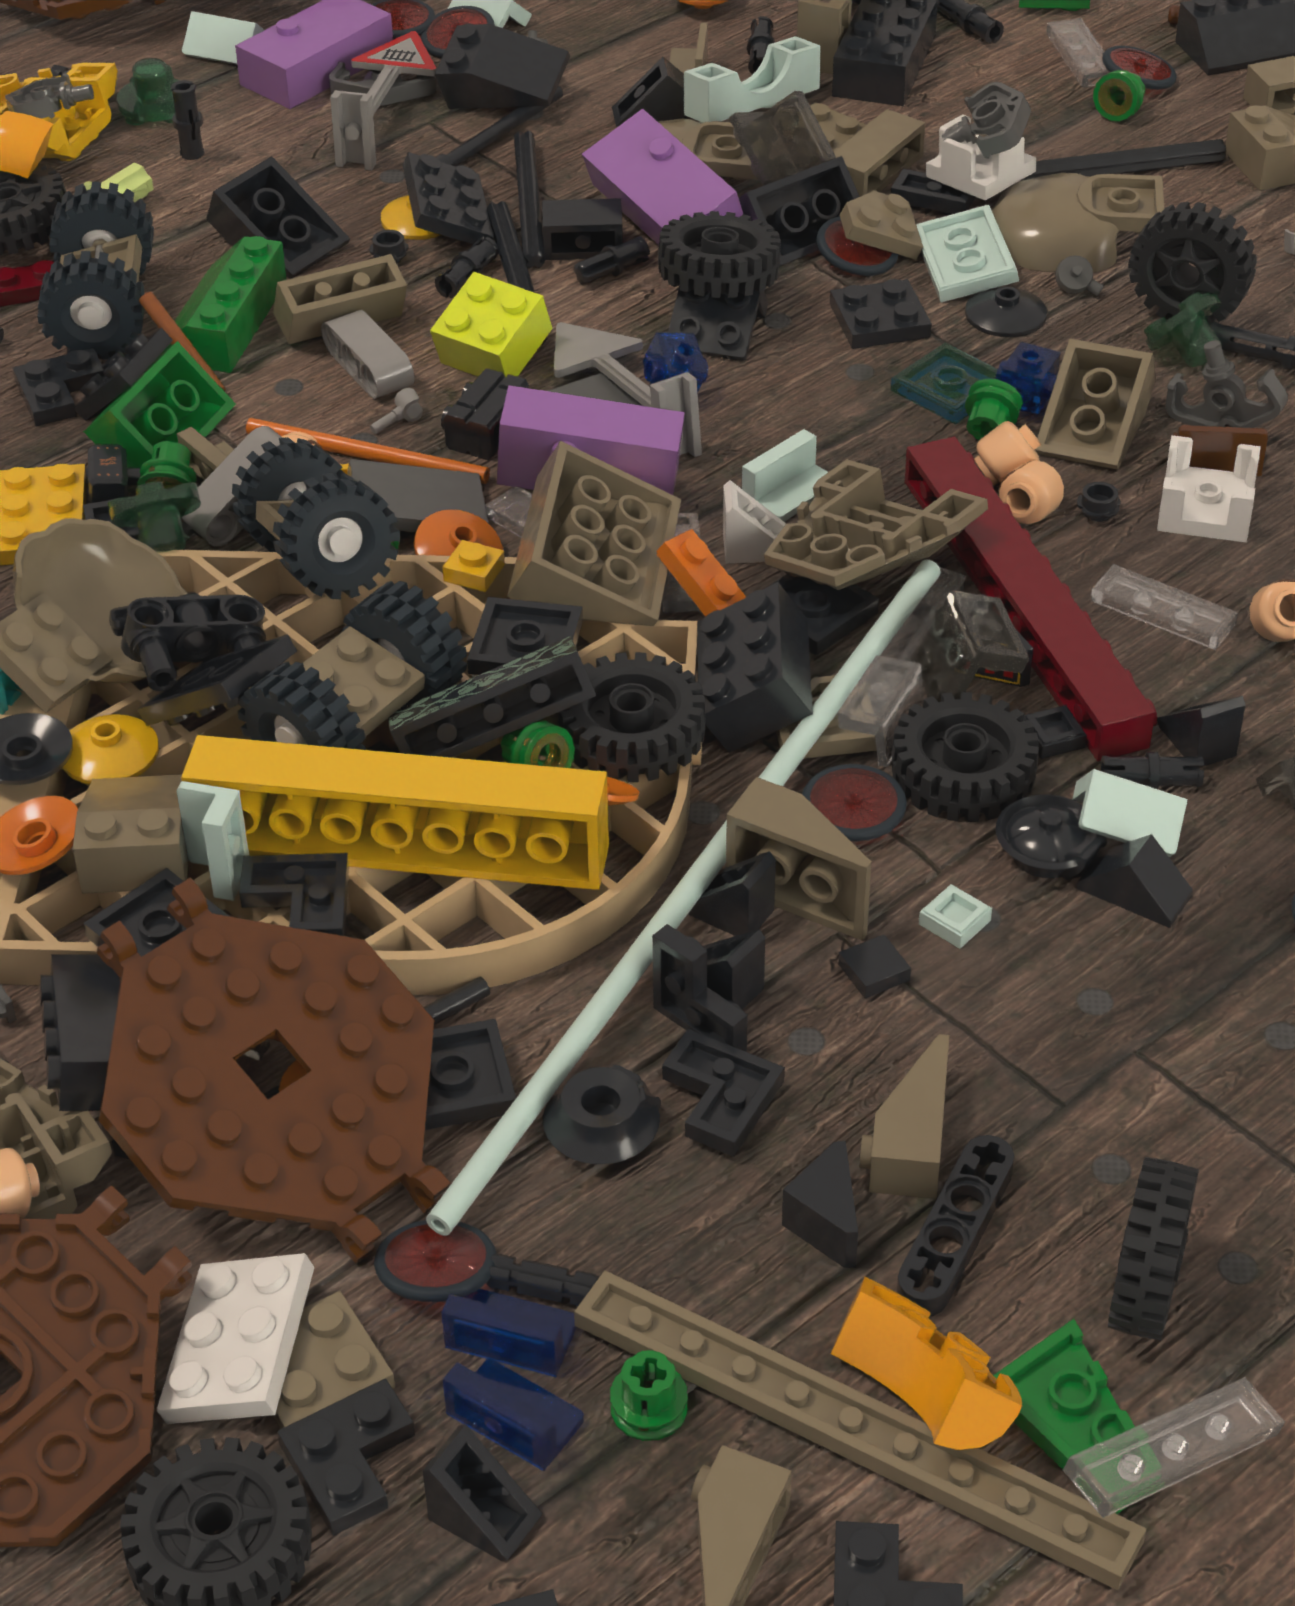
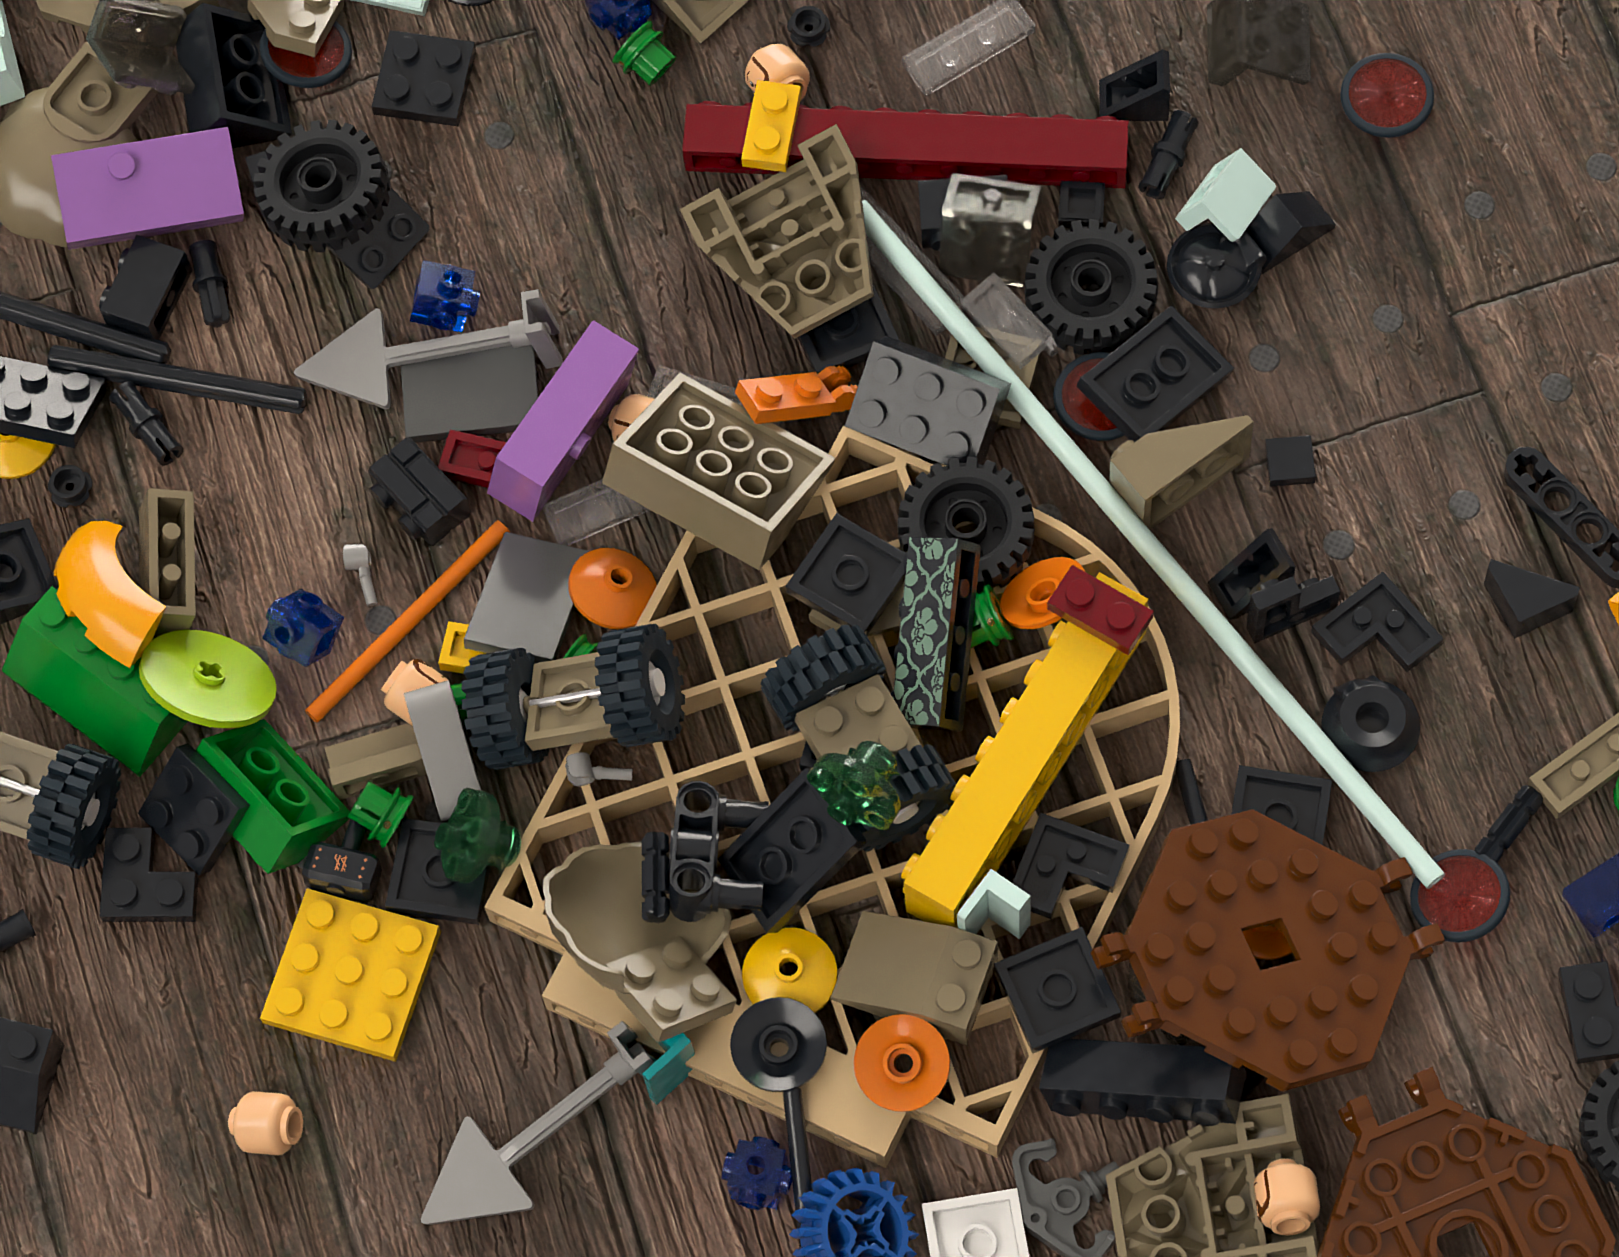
camera: 60 degrees left, 25 degrees up
(164, 320) = (160, 739): dark orange bar -> none
(236, 1339) = (1484, 1059): white plate -> none
(242, 343) = (207, 679): none -> lime piece
(254, 557) = (582, 773): none -> light grey hand
(266, 263) = (102, 595): none -> light orange brick
(270, 642) = (858, 785): none -> clear green plate
(321, 384) = (302, 627): none -> clear blue brick
(328, 1360) = (1522, 1010): dark tan plate -> none
(367, 354) = (259, 567): light grey beam -> none
(473, 565) = (684, 583): yellow plate -> none
(491, 327) = (299, 438): neon yellow brick -> none
(508, 1330) = (1545, 862): clear blue panel -> none
(560, 778) = (1100, 610): none -> dark red plate
(739, 896) = (1181, 527): black slope -> none
(746, 526) = (715, 330): white slope -> none
(784, 475) = (652, 268): light aqua panel -> none
(897, 819) = (1155, 376): none -> black plate
(908, 1129) = (1479, 507): dark tan slope -> none
(942, 381) = (565, 67): tile -> none
(955, 916) = (1260, 377): light aqua tile -> none
(985, 479) = (771, 126): none -> yellow plate
(1005, 450) = (721, 70): light nougat head -> none

